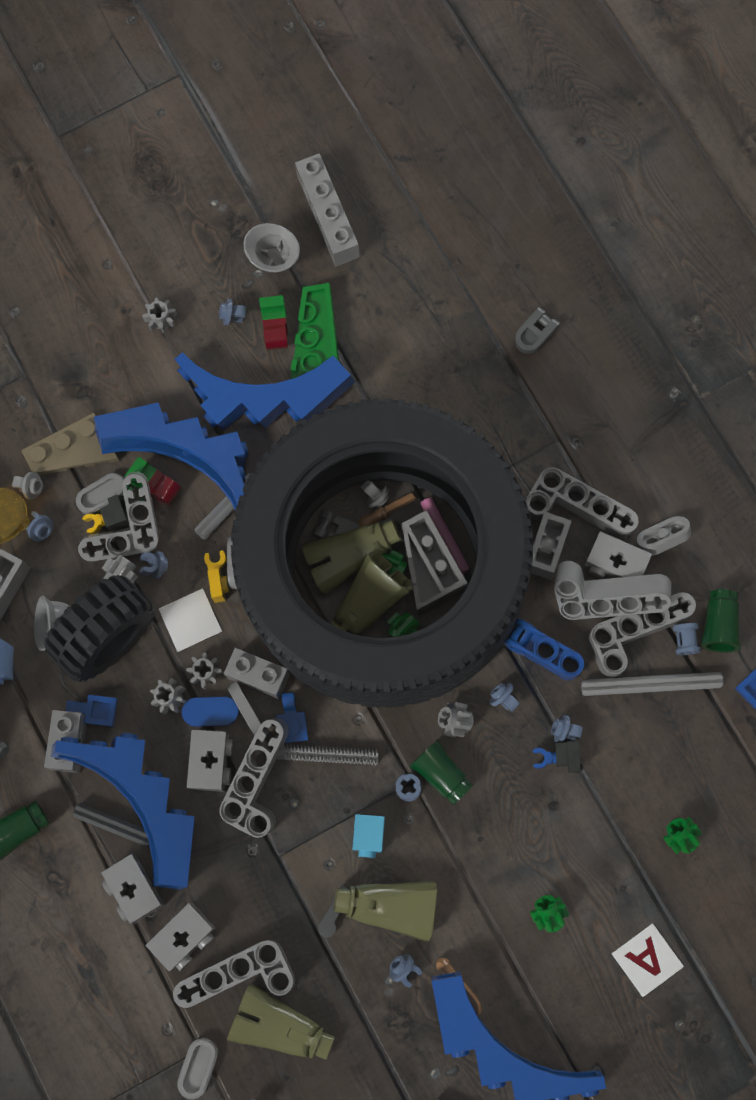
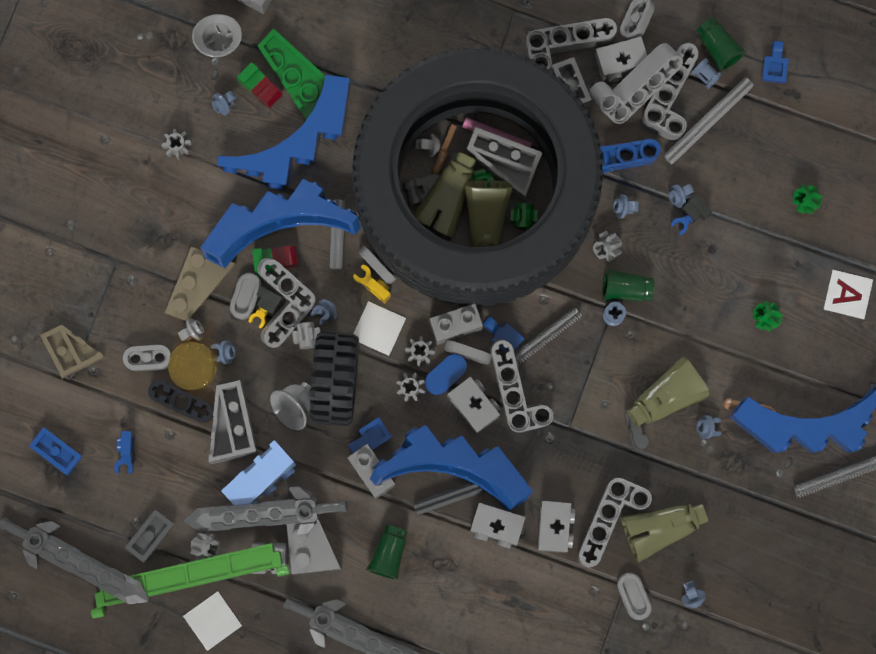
camera: 50 degrees left, 5 degrees up
(368, 835) = (615, 364): medium azure brick -> none

